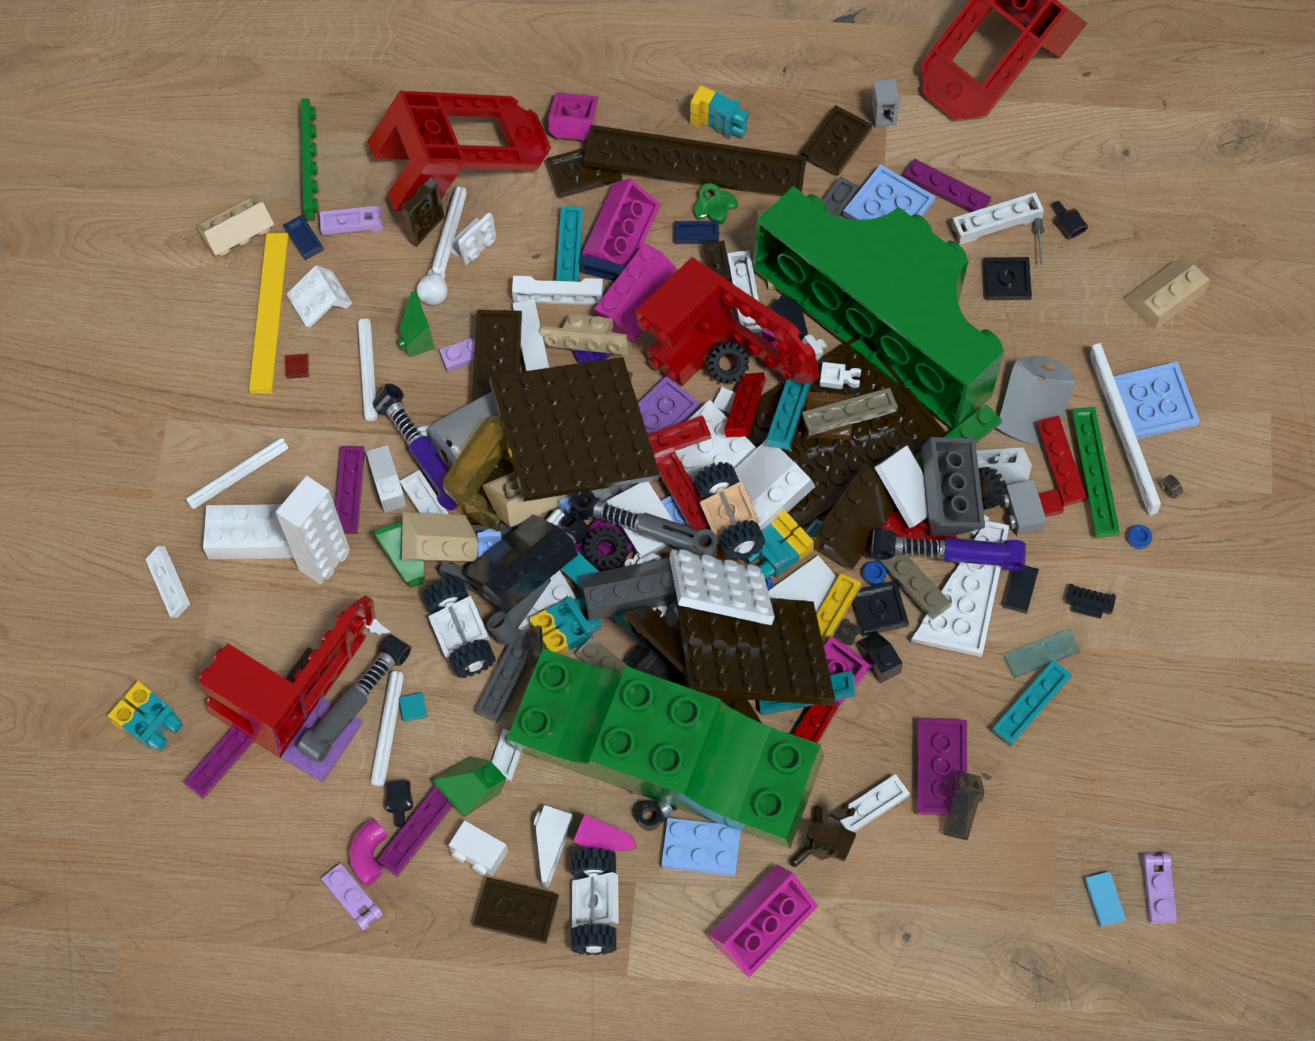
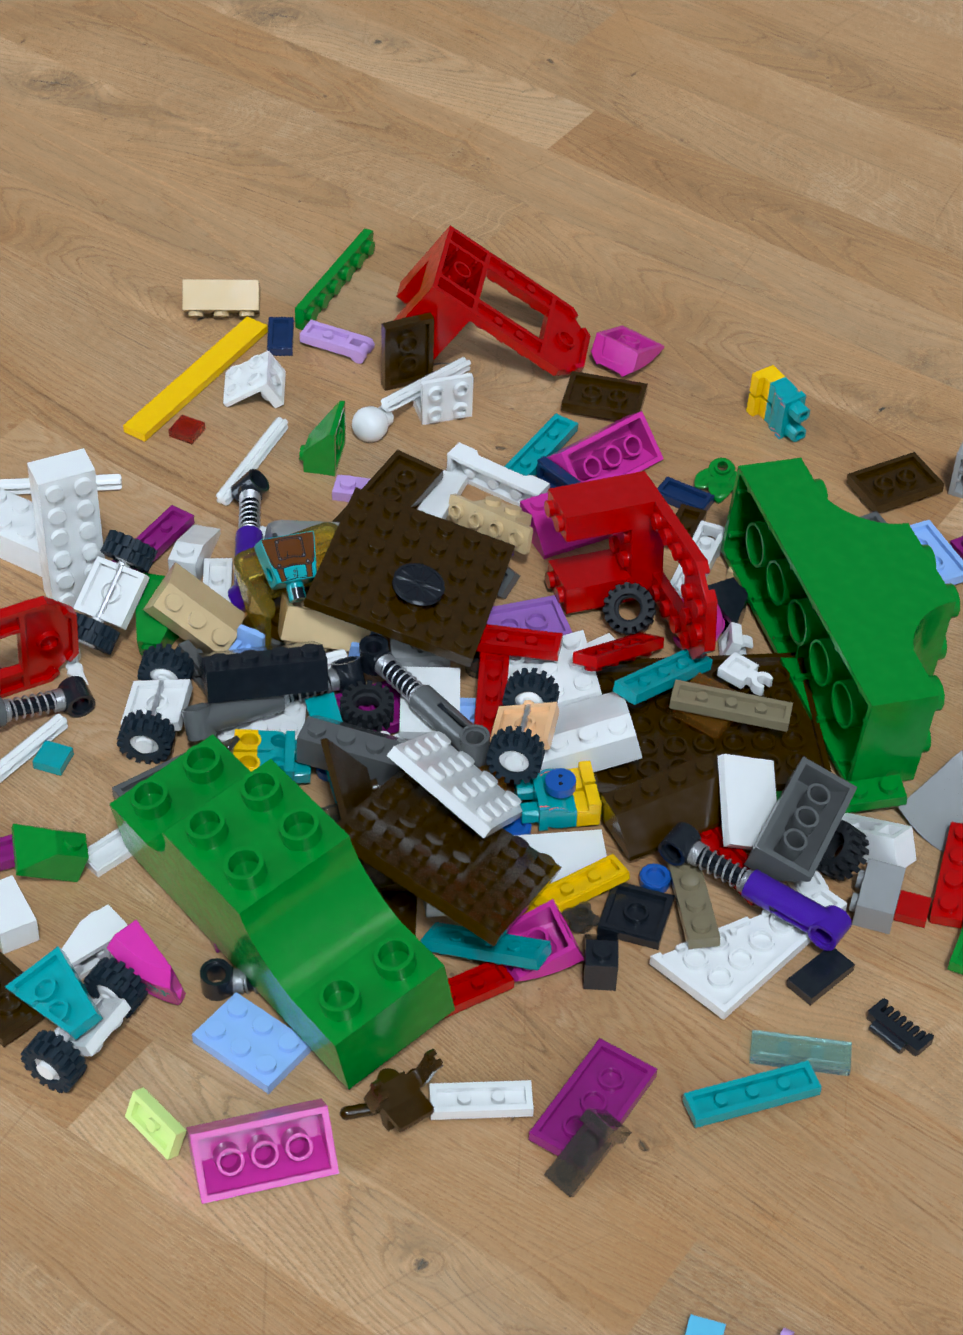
camera: 25 degrees right, 20 degrees down
(368, 555) = (113, 590): none -> plate
(488, 469) = (289, 562): none -> torso
(564, 892) = (57, 993): none -> teal wing
(590, 438) = (418, 584): none -> black wheel
(685, 942) = (155, 1123): none -> yellowish green plate
(693, 160) = (709, 422): dark brown plate -> none
(778, 541) = (560, 783): none -> blue tile

